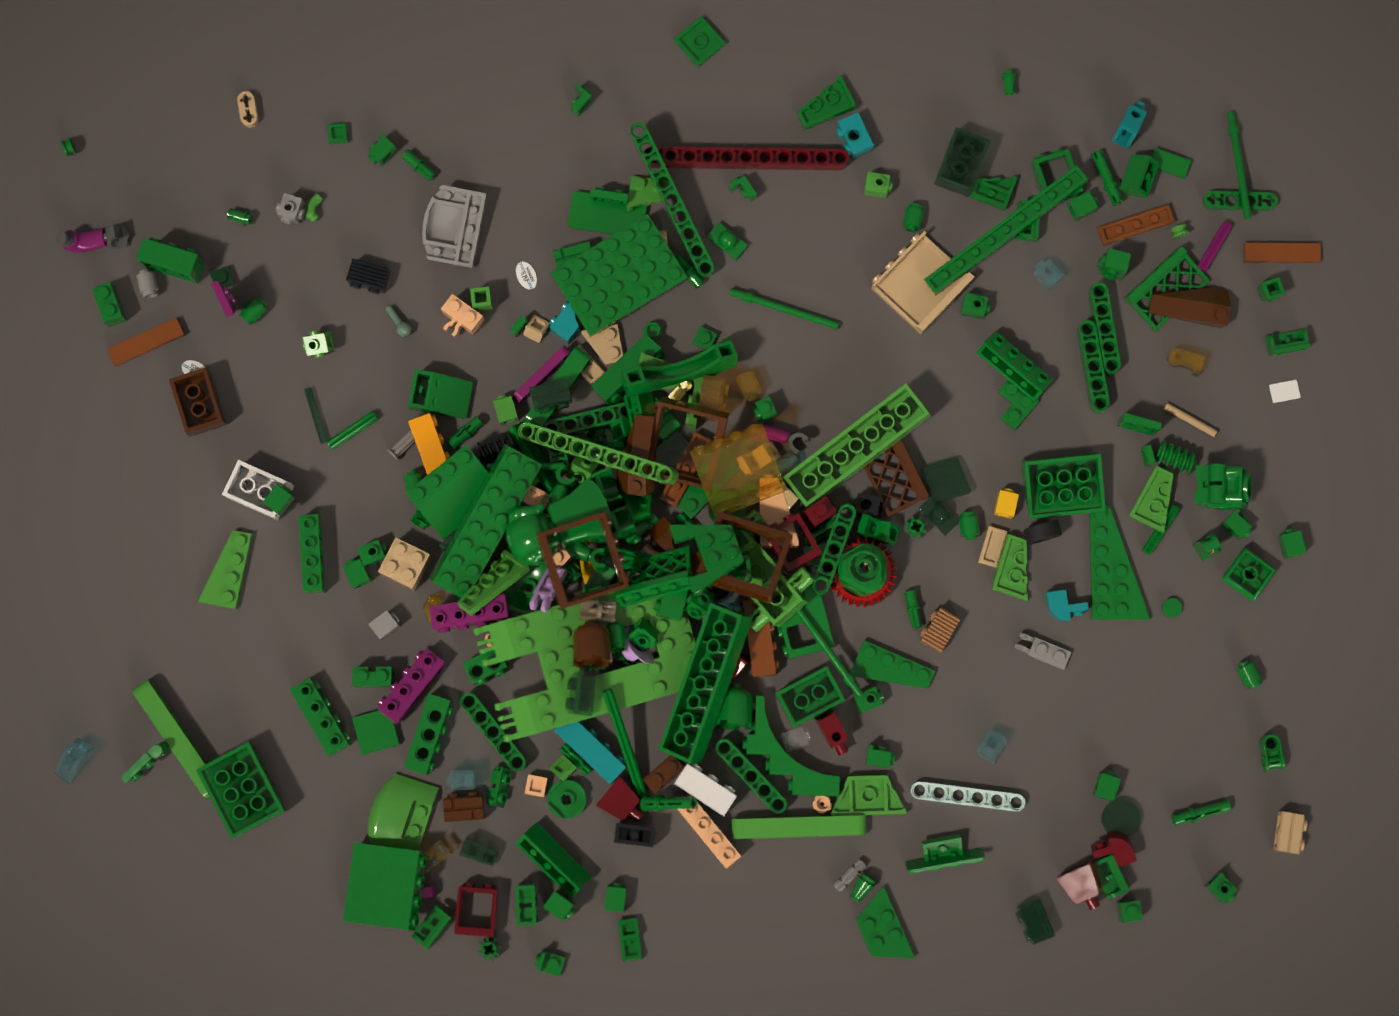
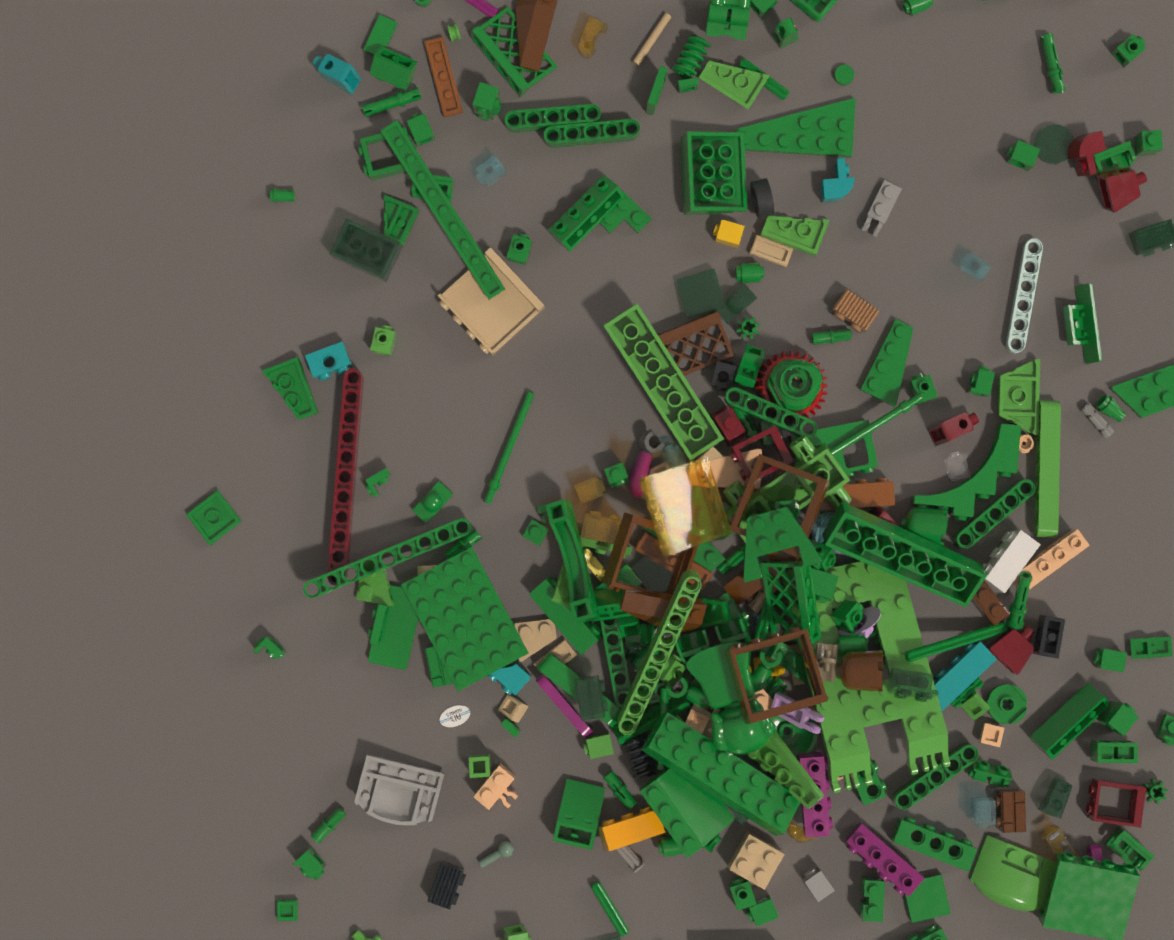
camera: 90 degrees left, 5 degrees up
(653, 330) = (523, 586): green plate -> none
(810, 697) = (918, 448): green brick -> none
(913, 218) = (421, 306): green brick -> none

